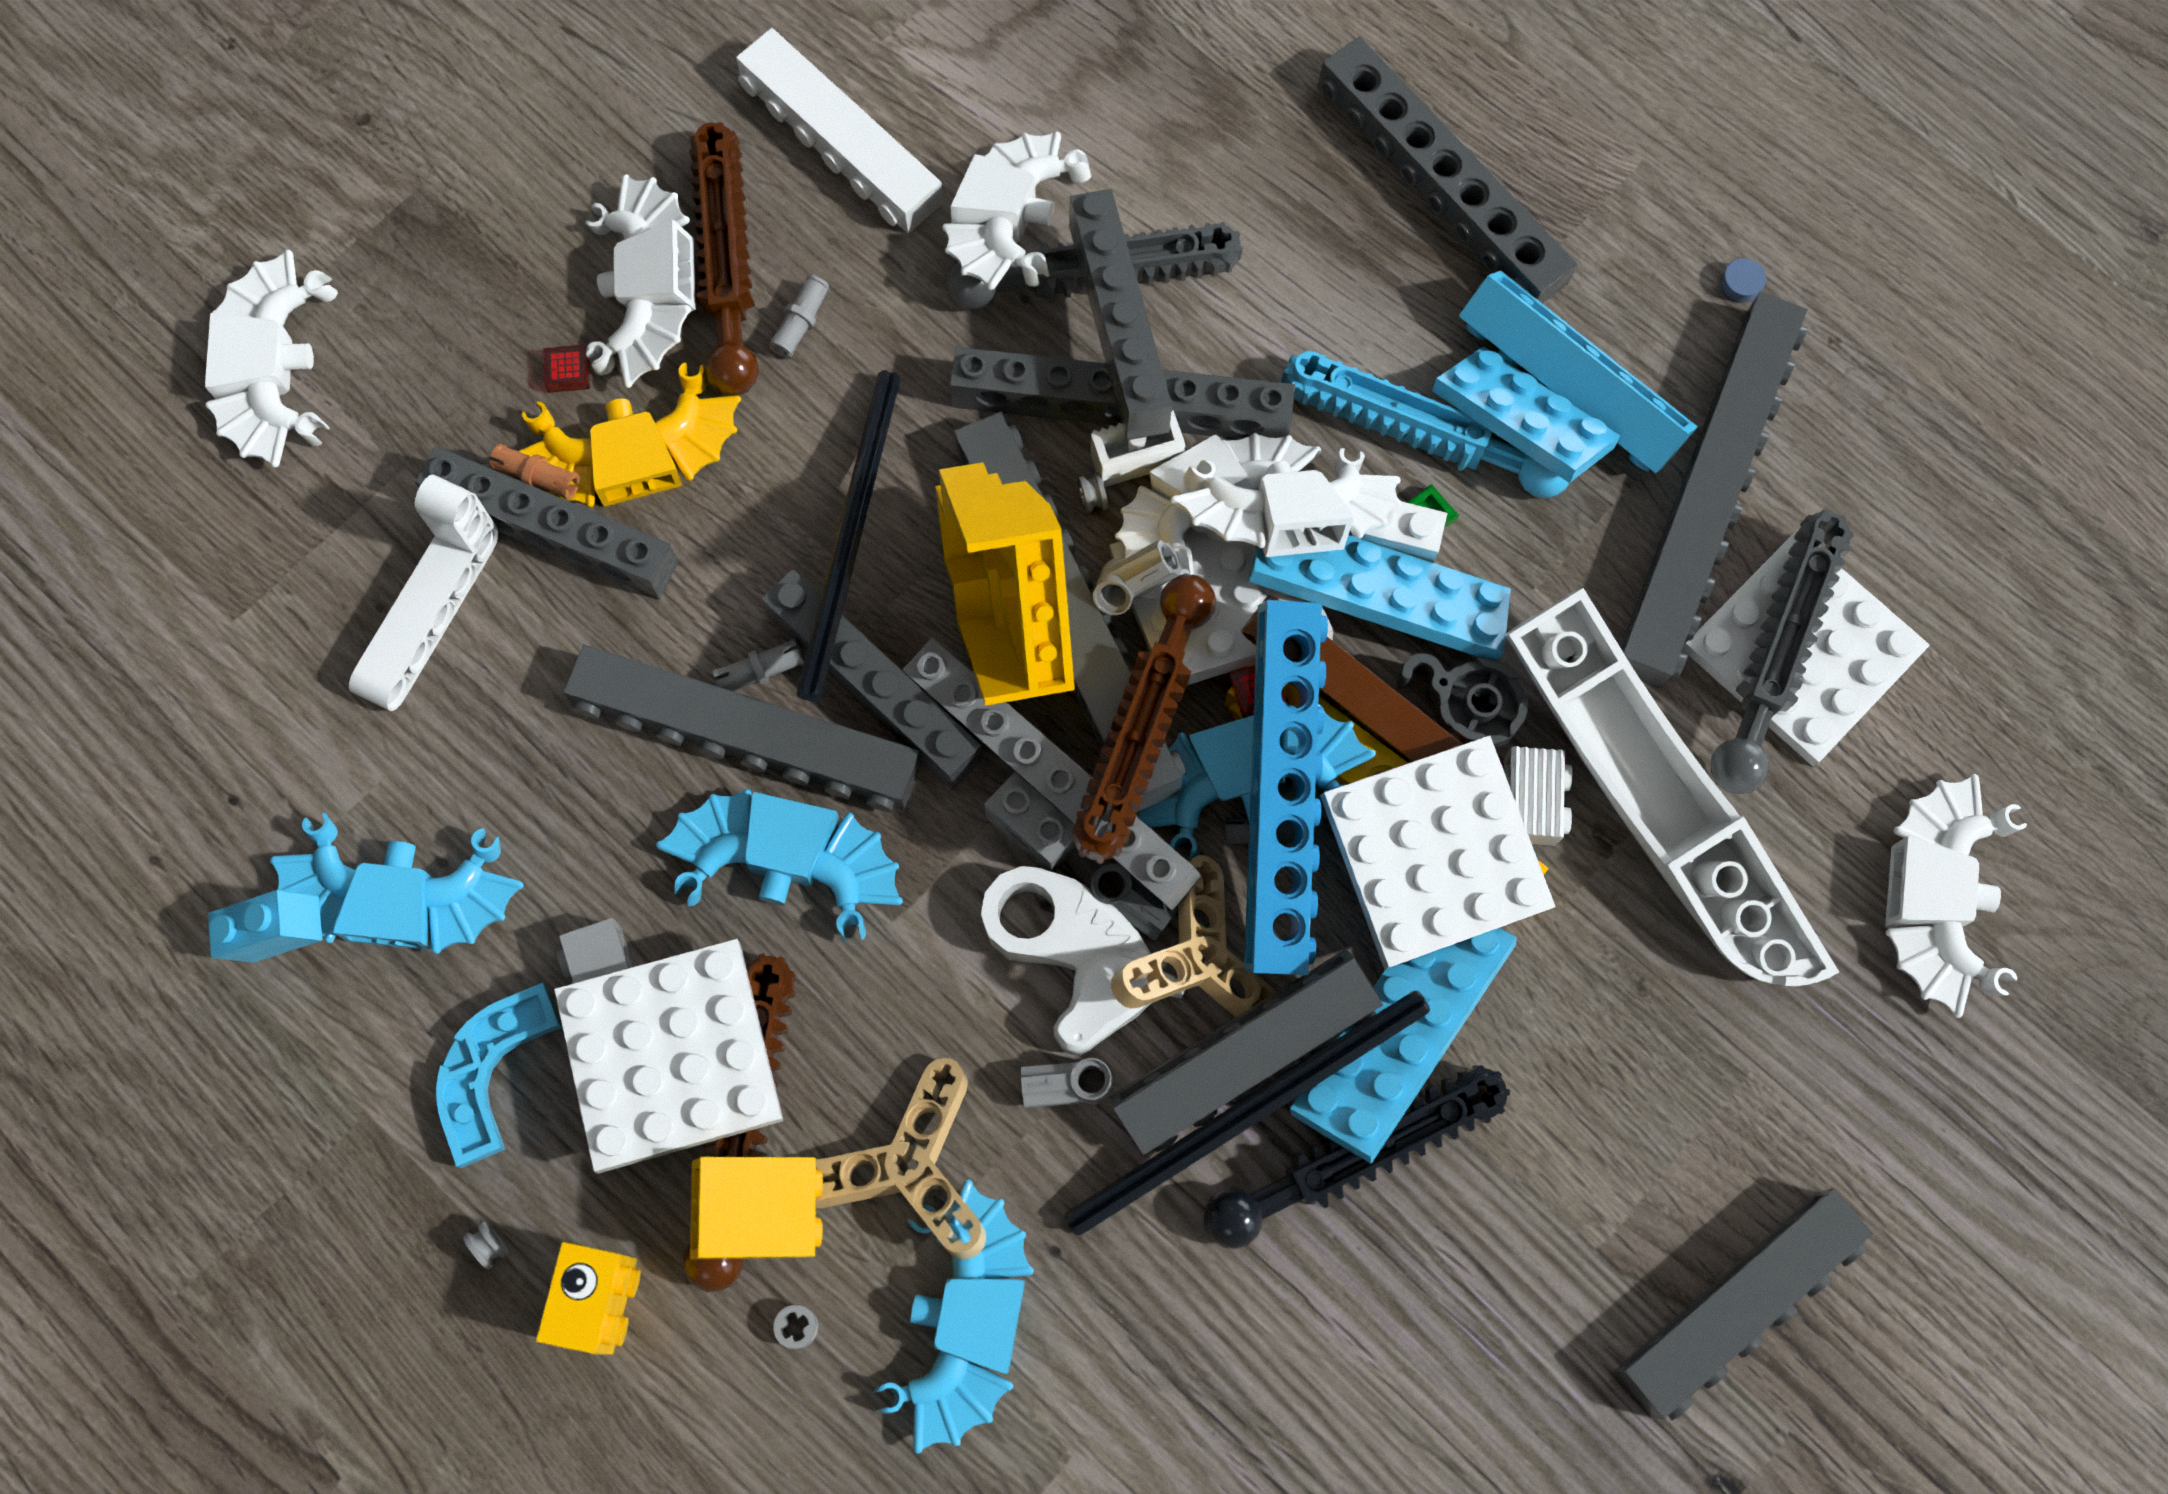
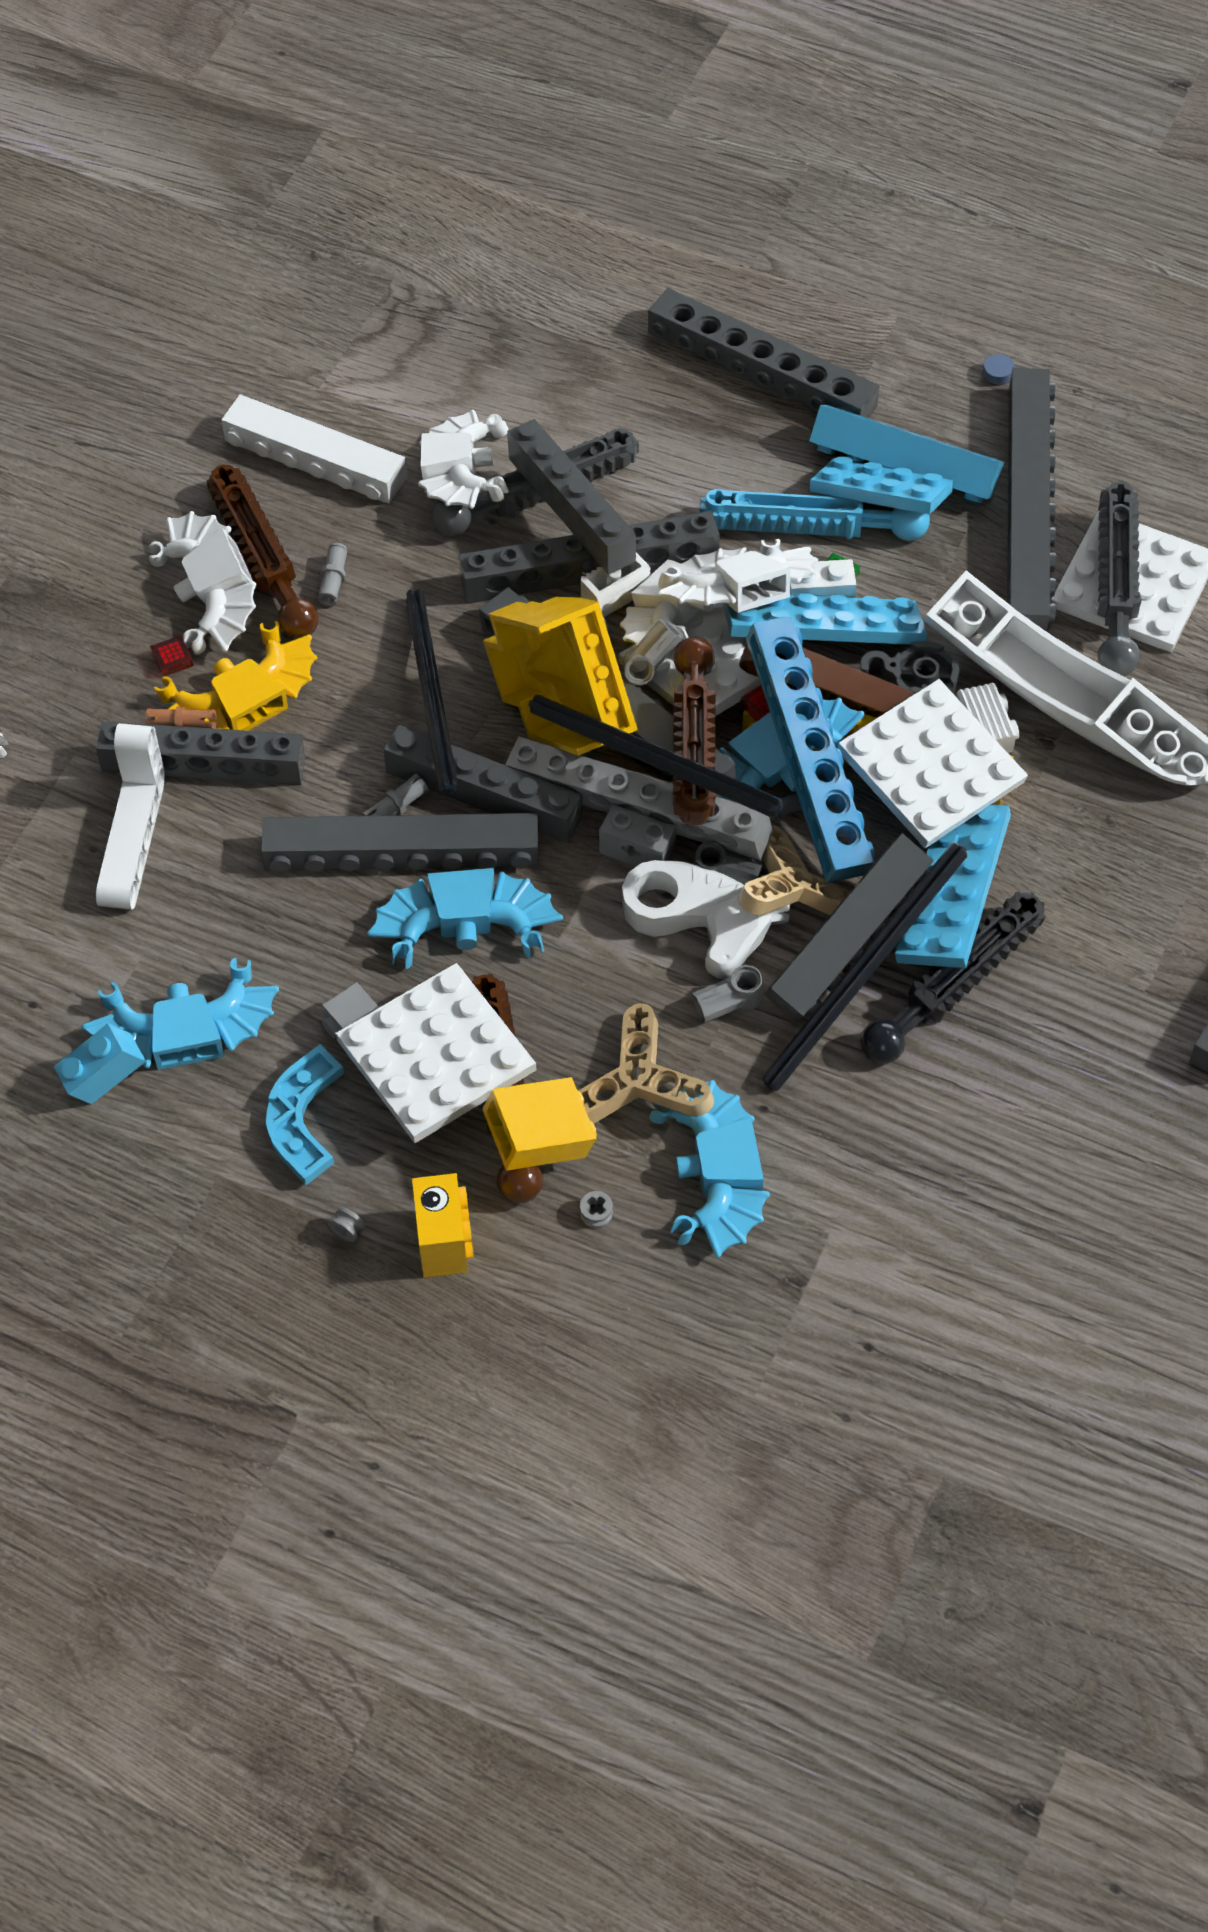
camera: 15 degrees left, 15 degrees down
(1075, 758) = (656, 756): none -> black axle

